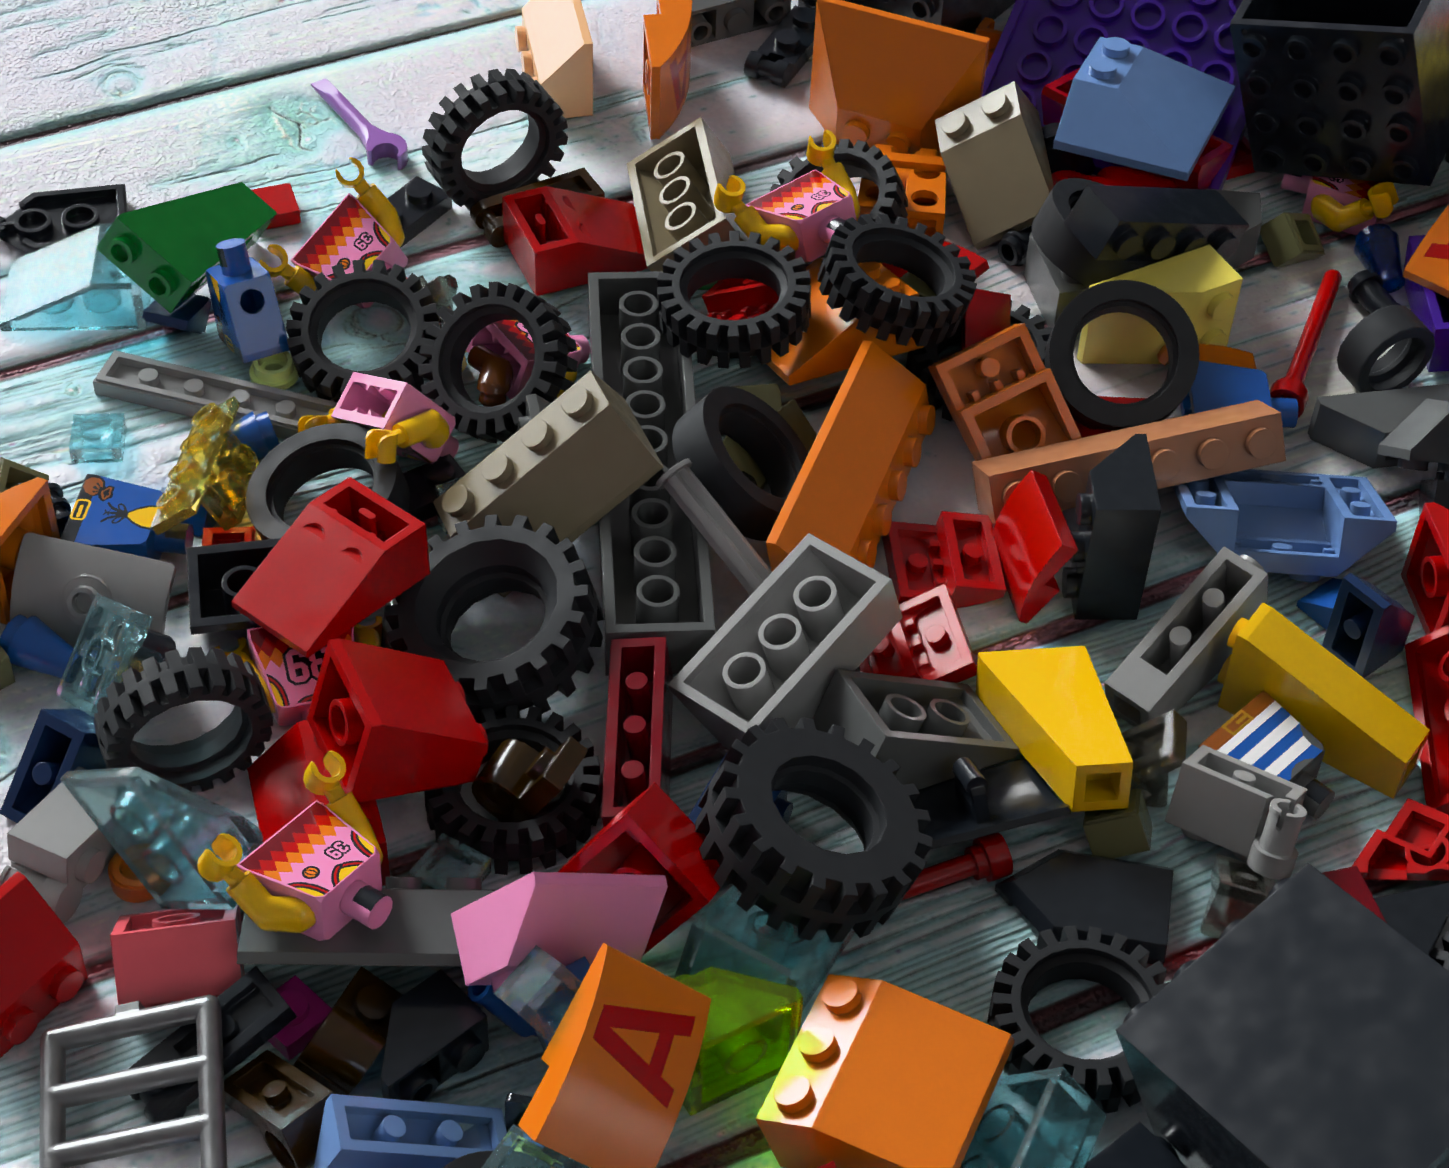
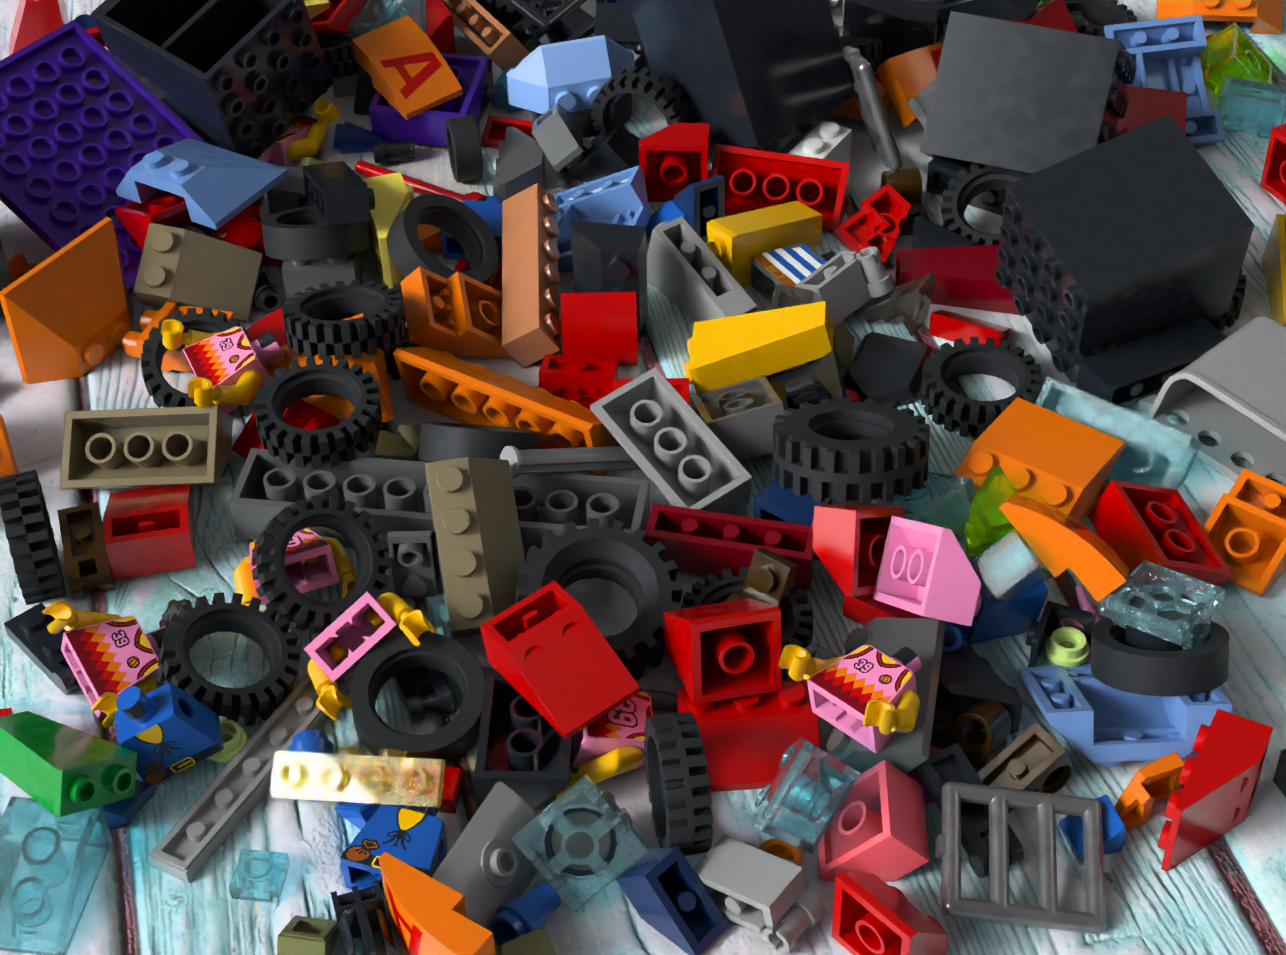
camera: 75 degrees left, 5 degrees down
(494, 376) = (323, 575): reddish brown arm -> none

